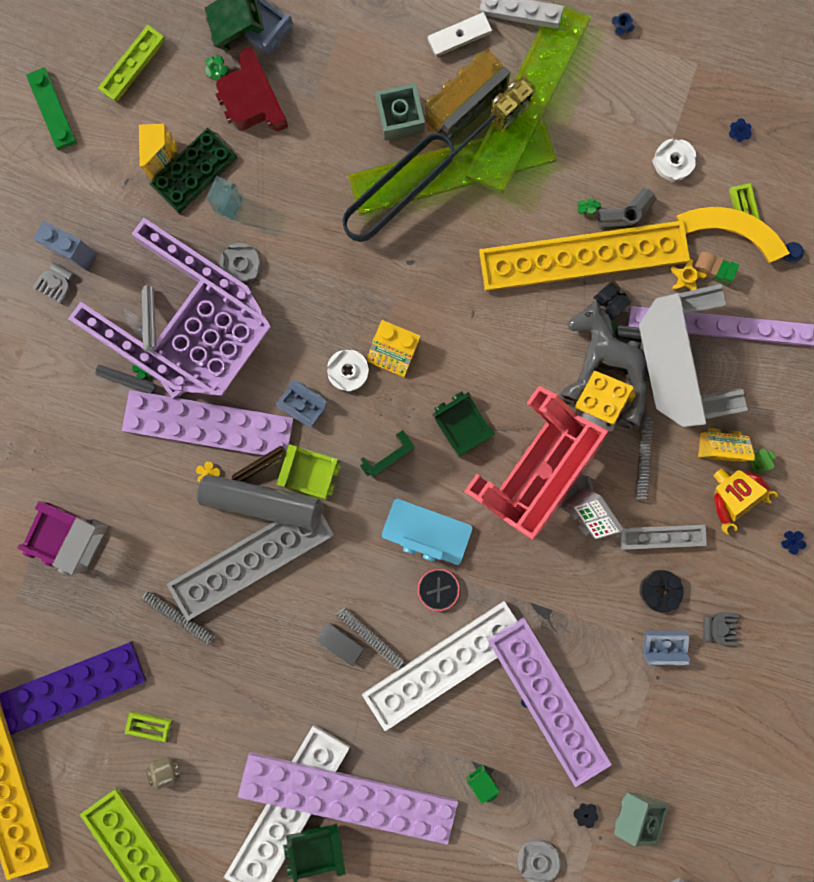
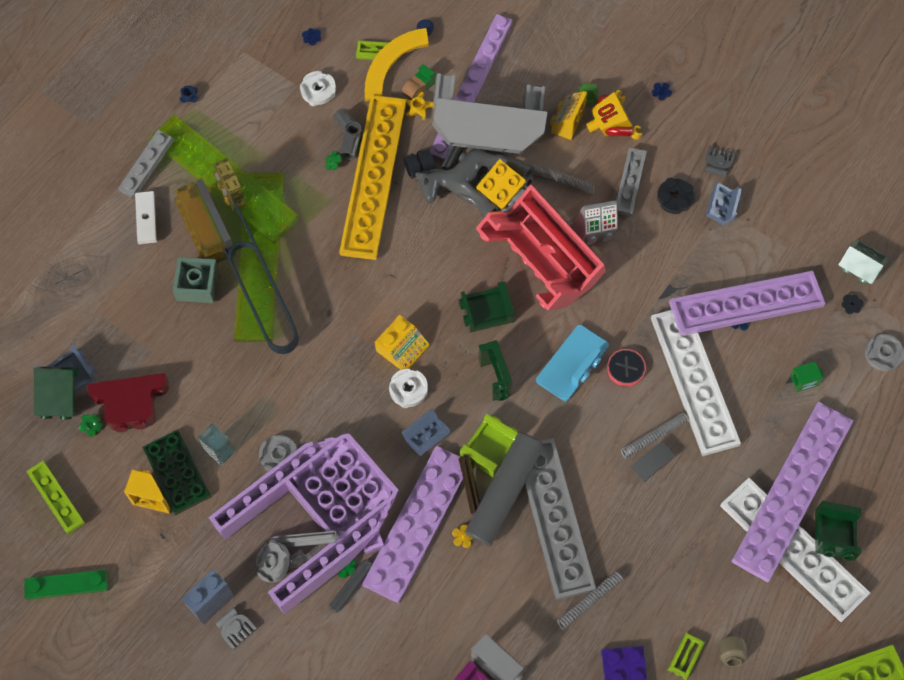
camera: 70 degrees left, 20 degrees down
(123, 296) = (272, 562): none -> light grey tile

